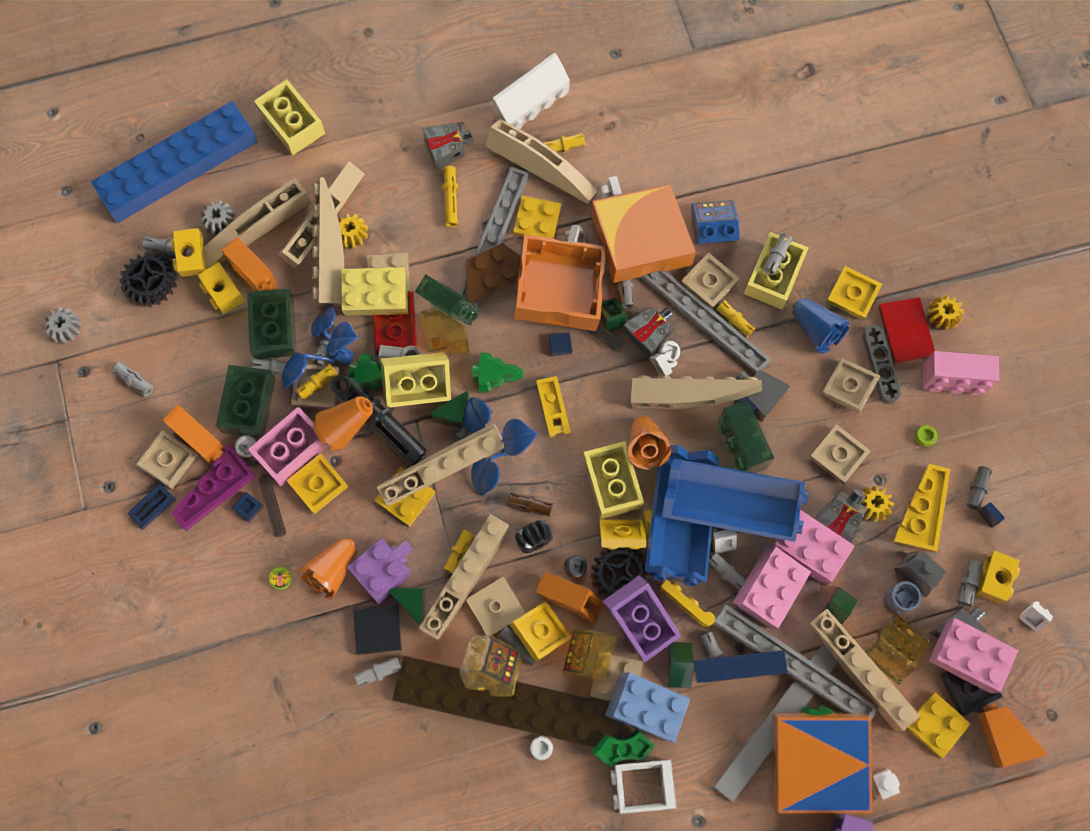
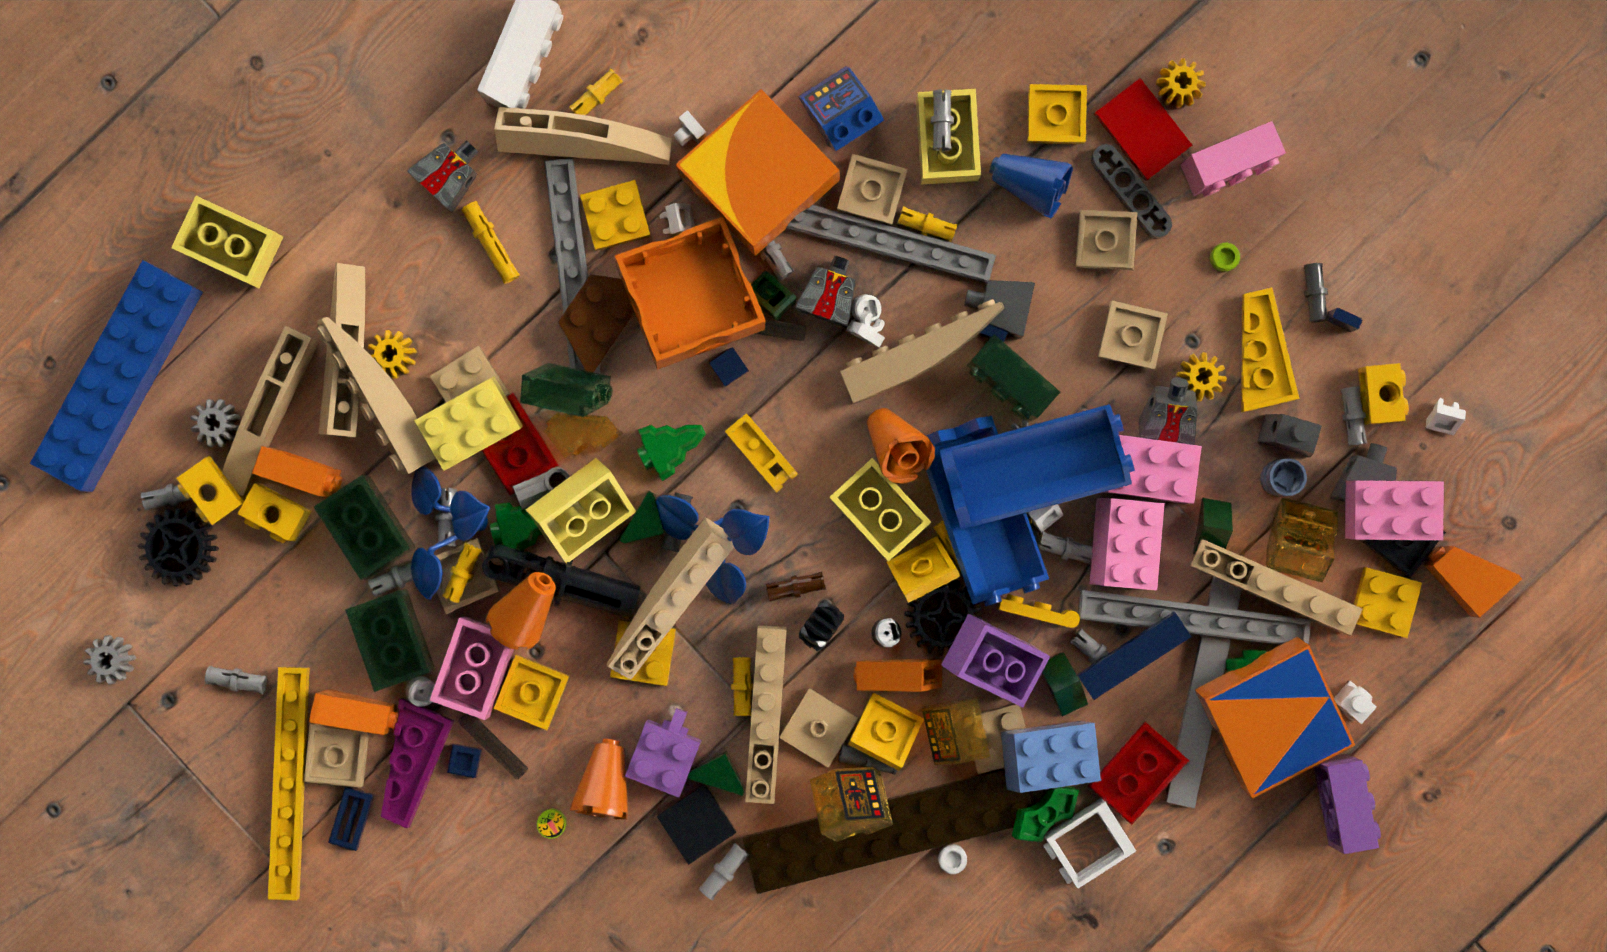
camera: 25 degrees left, 15 degrees up
(123, 463) = (288, 783): none -> yellow plate
(704, 754) = (1138, 772): none -> red tile

